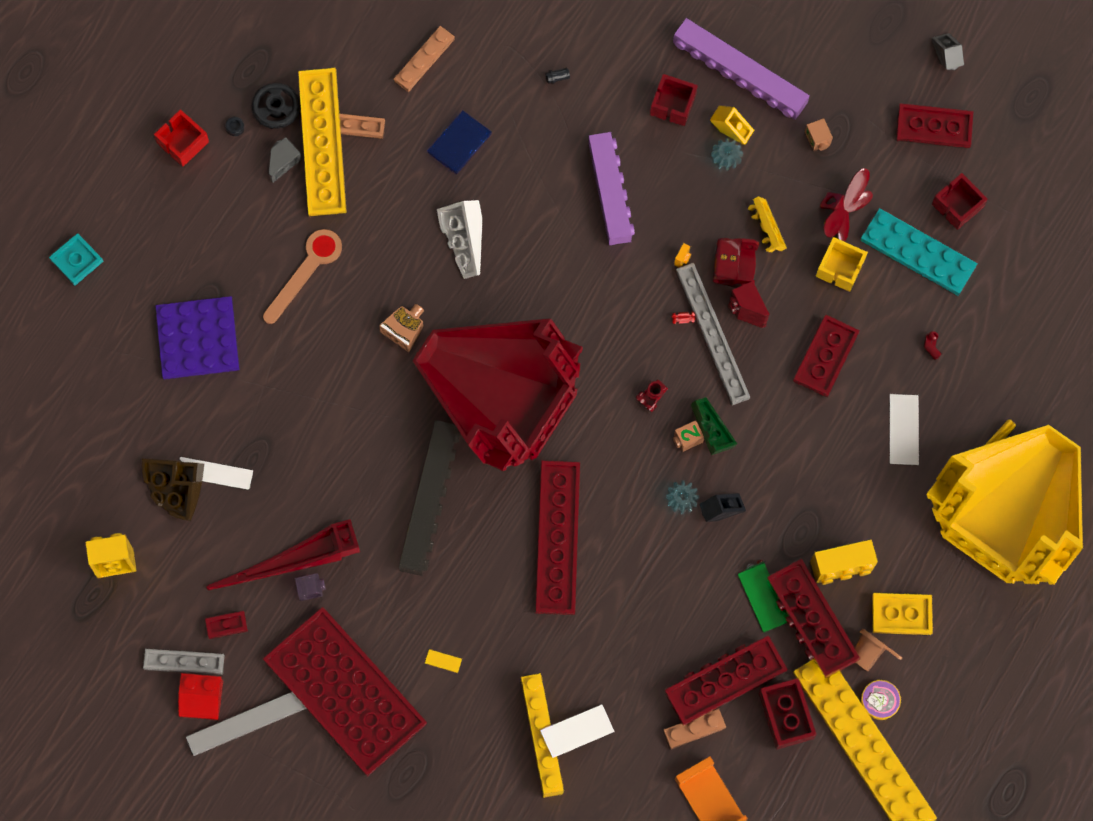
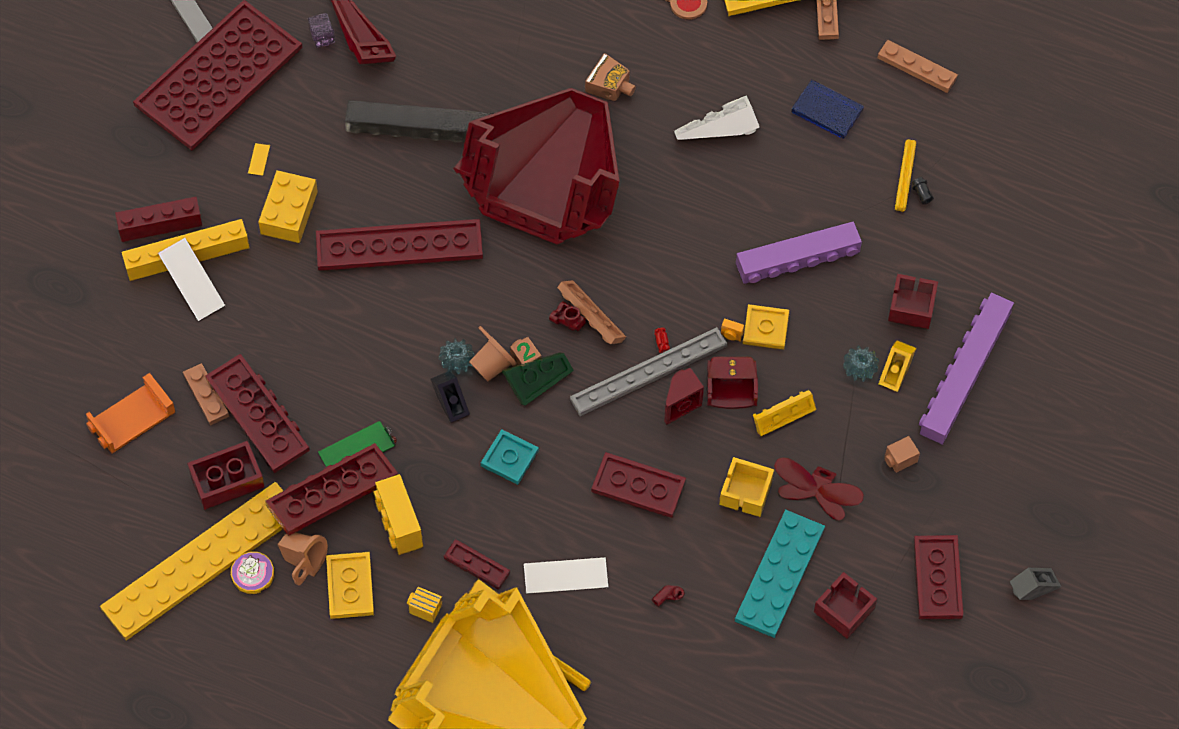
camera: 85 degrees right, 10 degrees down
(504, 758) = (158, 219): none -> dark red brick
(506, 635) = (288, 206): none -> yellow brick
(538, 87) = (905, 175): none -> yellow axle
(650, 373) = (595, 316): none -> nougat plate
(678, 227) = (766, 327): none -> yellow tile
(692, 464) = (491, 358): none -> nougat container
(788, 462) = (509, 456): none -> teal plate
(888, 503) = (477, 564): none -> dark red tile
(927, 550) = (424, 604): none -> yellow brick

